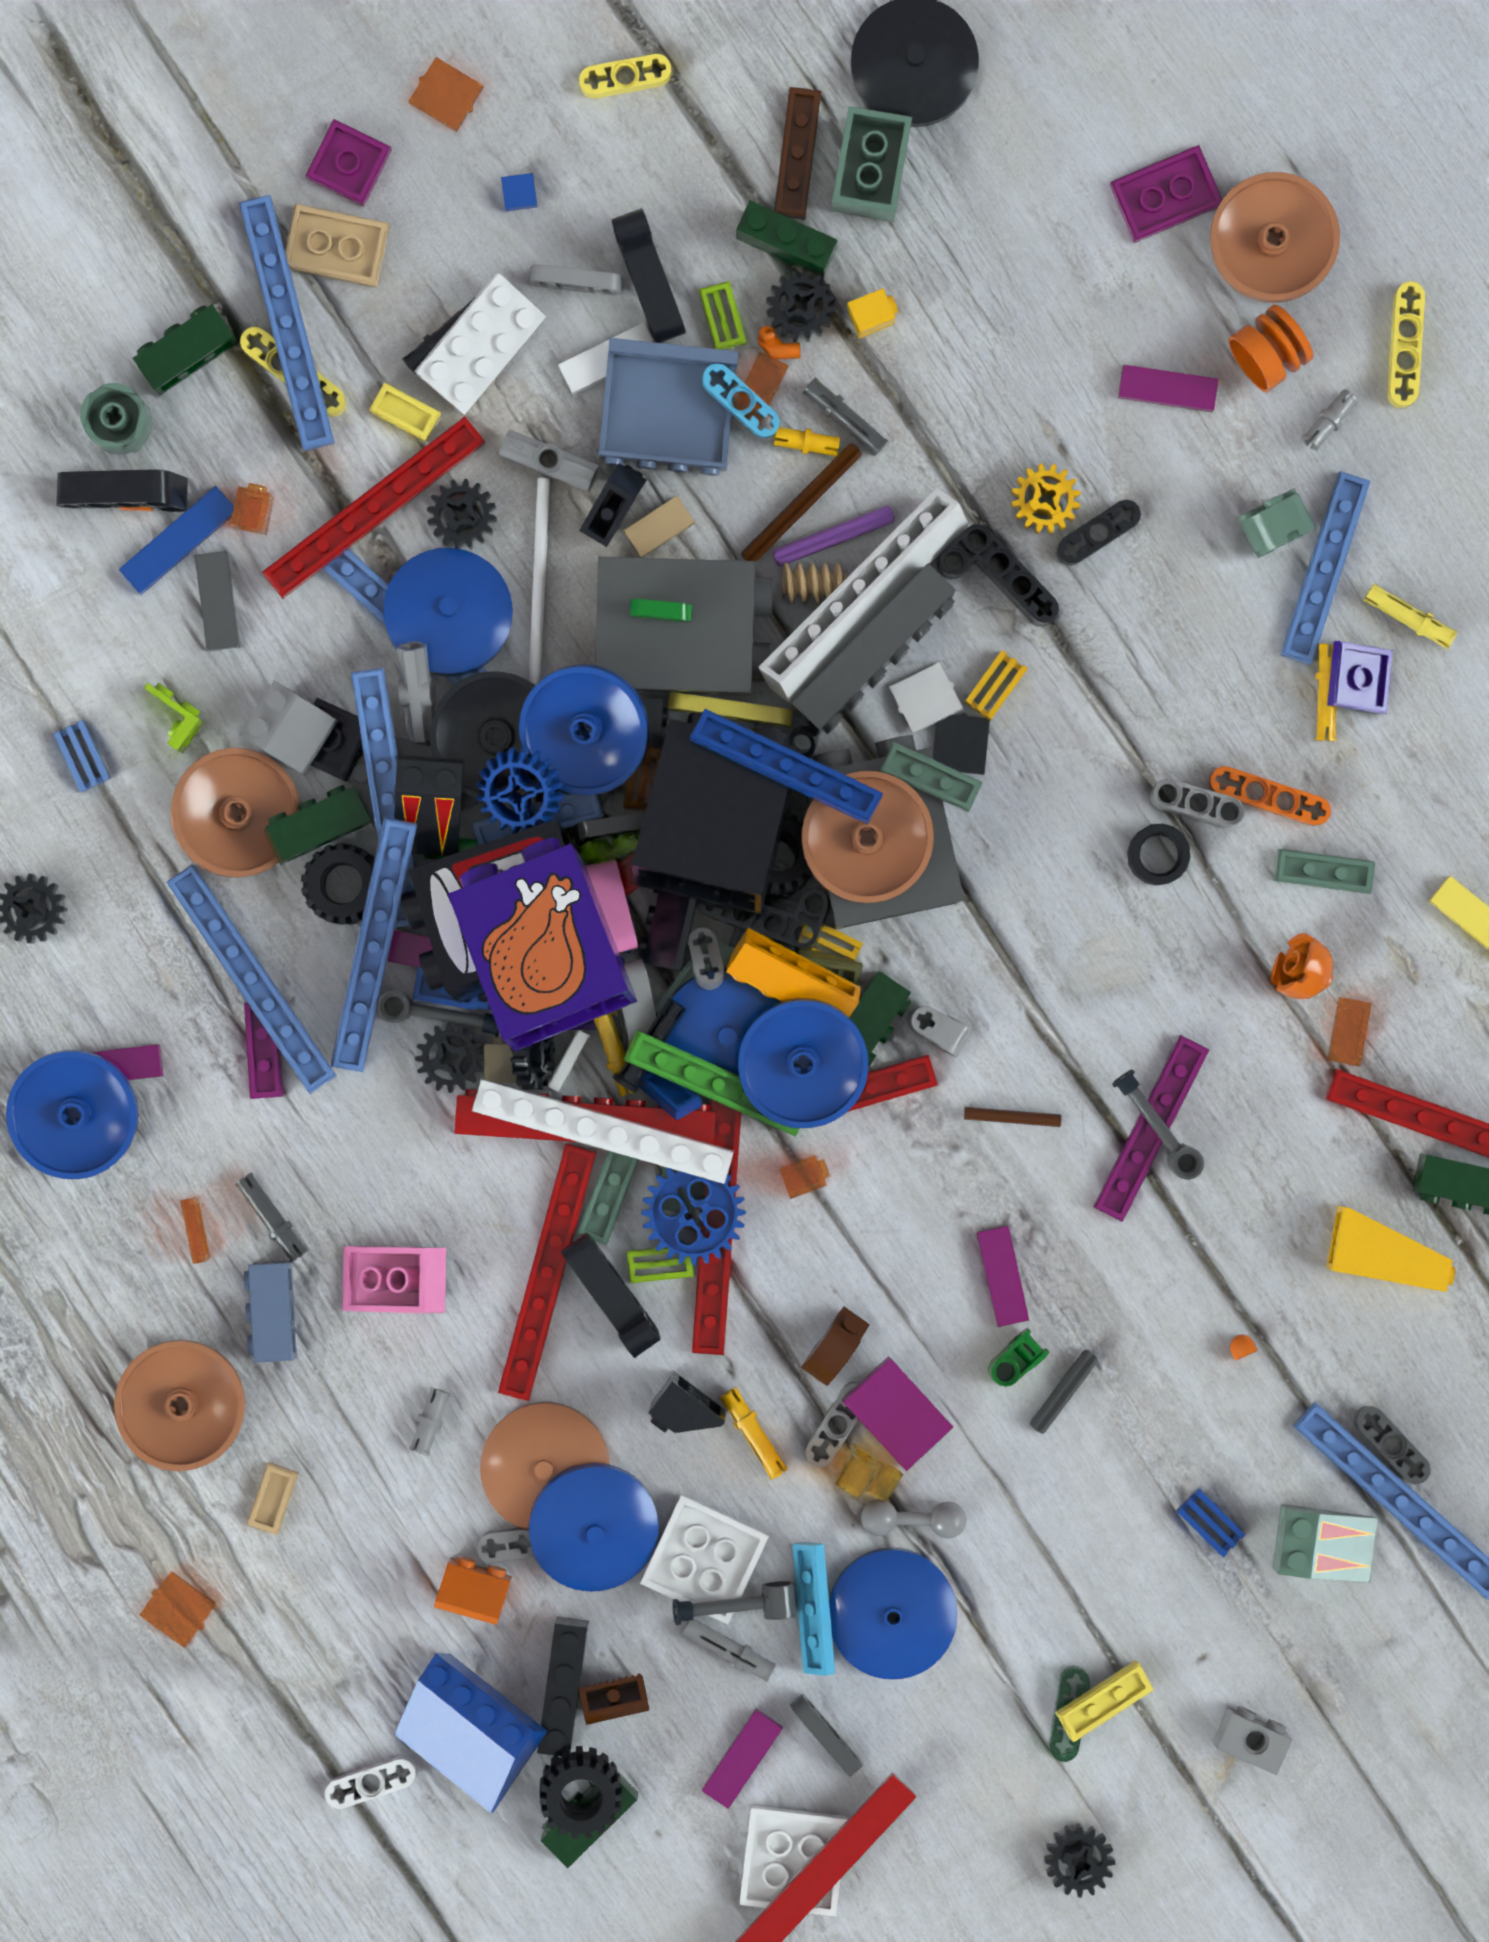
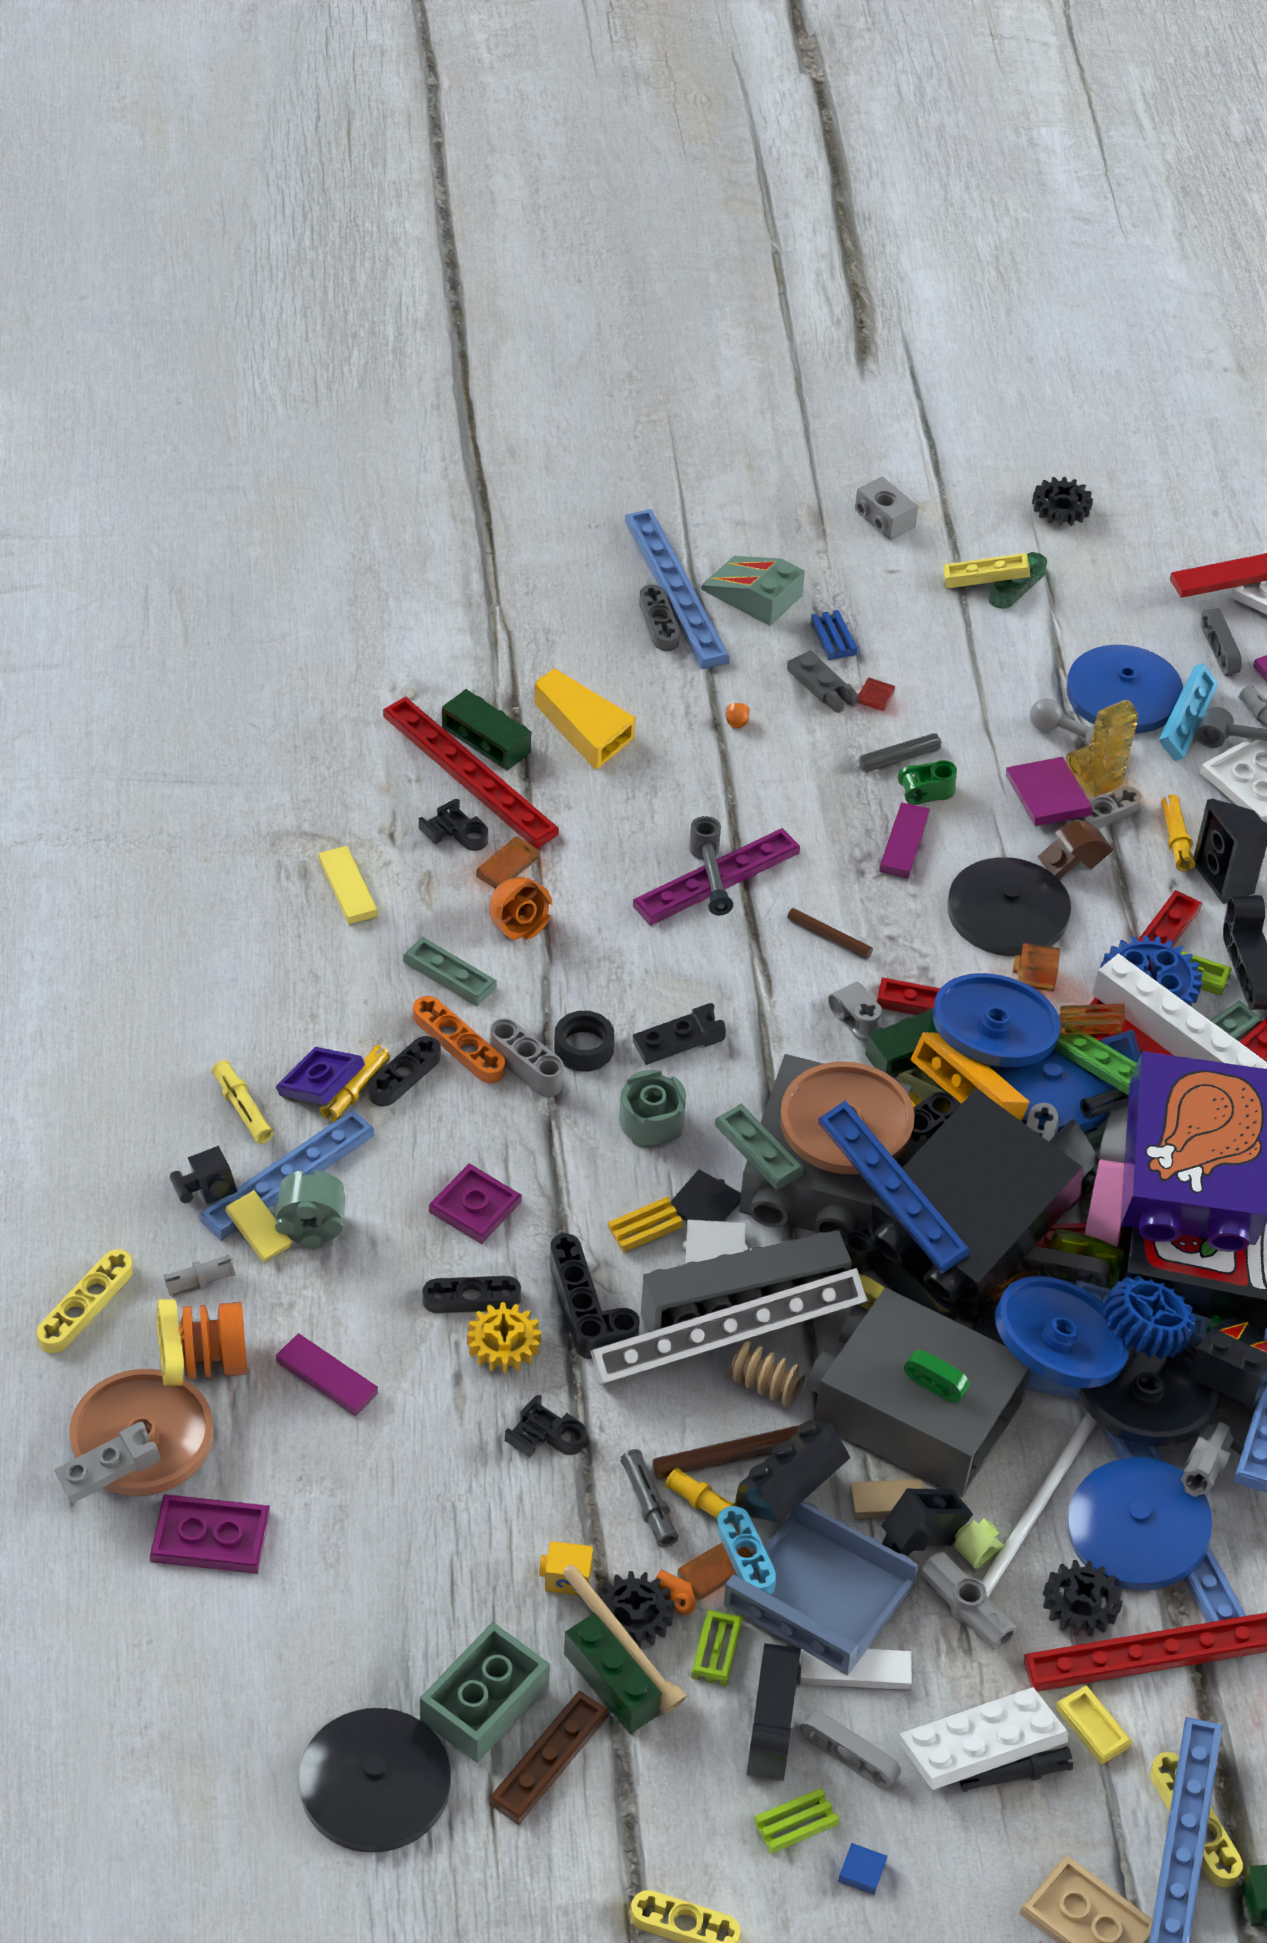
camera: 155 degrees left, 40 degrees down
(565, 519) = (978, 1542): none -> yellowish green plate
(578, 194) = (815, 1797): none -> lime tile
(735, 248) = (671, 1695): none -> tan piece
(738, 483) = (792, 1472): none -> black slope
(745, 1105) = (1092, 1018): none -> clear orange tile
(834, 535) = (721, 1409): medium lavender axle -> none
(867, 1247) = (1007, 904): none -> black dish
(970, 440) = (542, 1423): none -> black piece
(1073, 804) = (652, 1108): none -> sand green brick
(1082, 909) = (680, 1034): none -> black plate
(1127, 1460) = (876, 694): none -> clear red tile
(1151, 628) = (475, 1203): none -> magenta tile
(1190, 1449) = (822, 681): none -> dark grey hinge
(1278, 180) = (108, 1462): none -> light grey plate
(1294, 306) = (169, 1342): none -> light yellow beam
(1297, 758) = (407, 1058): none -> black beam
(1316, 493) = (258, 1226): none -> light yellow tile
(1383, 513) = (209, 1175): none -> black brick
(1429, 1051) = (455, 822): none -> black piece

